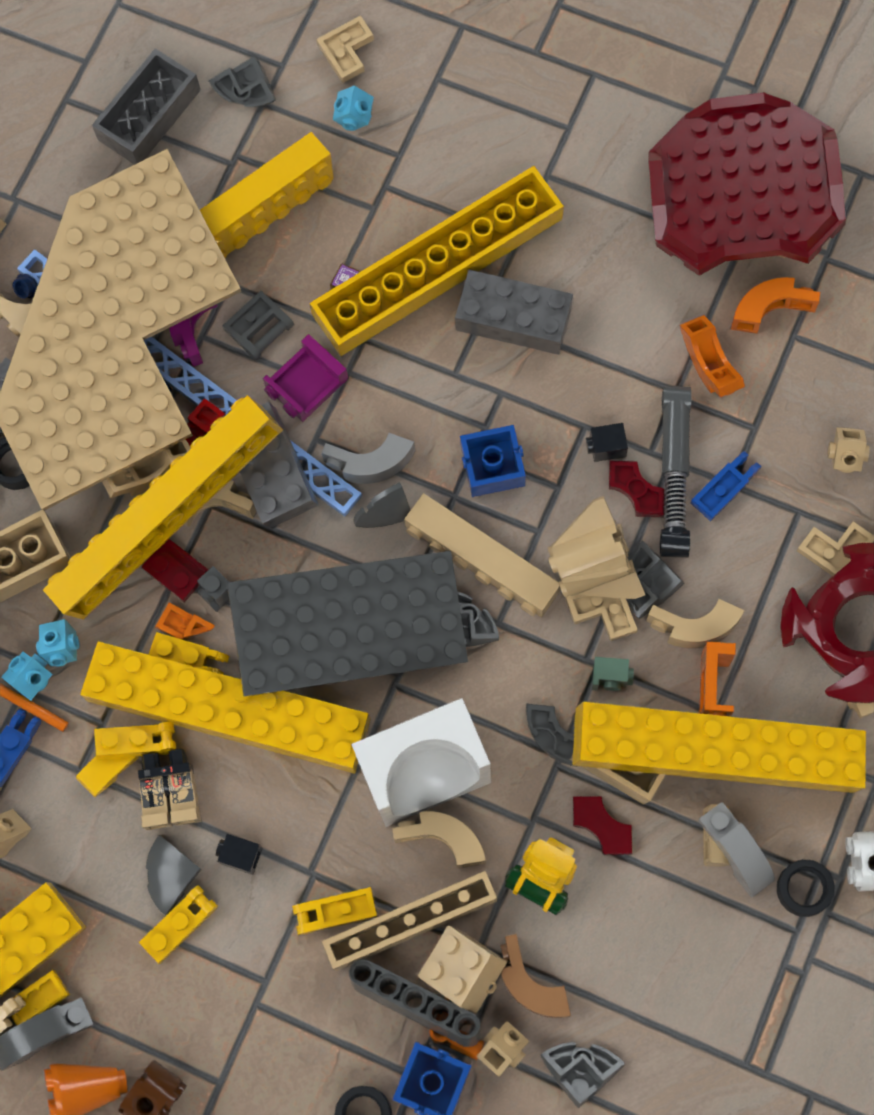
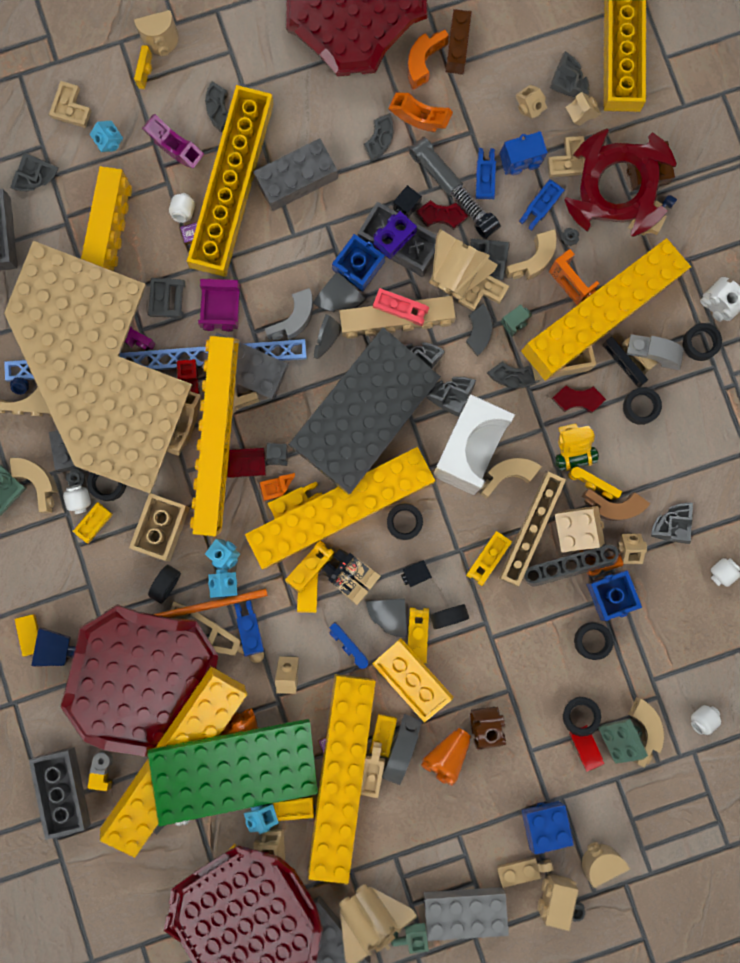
camera: 45 degrees left, 10 degrees up
(95, 865) = (349, 646): none -> blue hinge
(124, 967) = (412, 680): none -> yellow plate
(228, 933) = (449, 616): none -> black tyre
(276, 764) = (404, 507): none -> black tyre
(361, 245) = (182, 207): none -> white head
(414, 170) = (171, 143): none -> magenta arch
(441, 478) = (338, 295): none -> dark grey brick
(458, 70) = (143, 67): none -> yellow plate
(478, 694) = (452, 394): none -> dark grey brick
(490, 545) = (400, 306): none -> coral plate
(501, 168) = (215, 105): none -> dark grey tile
(506, 48) = (158, 32): none -> tan brick
(529, 934) = (593, 482): none -> yellow plate
(554, 470) = (398, 237): none -> dark purple brick
(558, 470) = (415, 254): none -> flat silver brick
(563, 651) = (481, 330): none -> dark grey tile
(645, 351) = (381, 138): none -> dark grey tile
(689, 897) = (650, 393): none -> black tyre
(691, 854) = (625, 362): none -> black tile
(754, 641) = (570, 241): none -> dark grey plate
(761, 572) = (542, 203): none -> blue hinge
(784, 498) = (523, 154): none -> blue brick
(826, 318) = (458, 41): none -> reddish brown brick

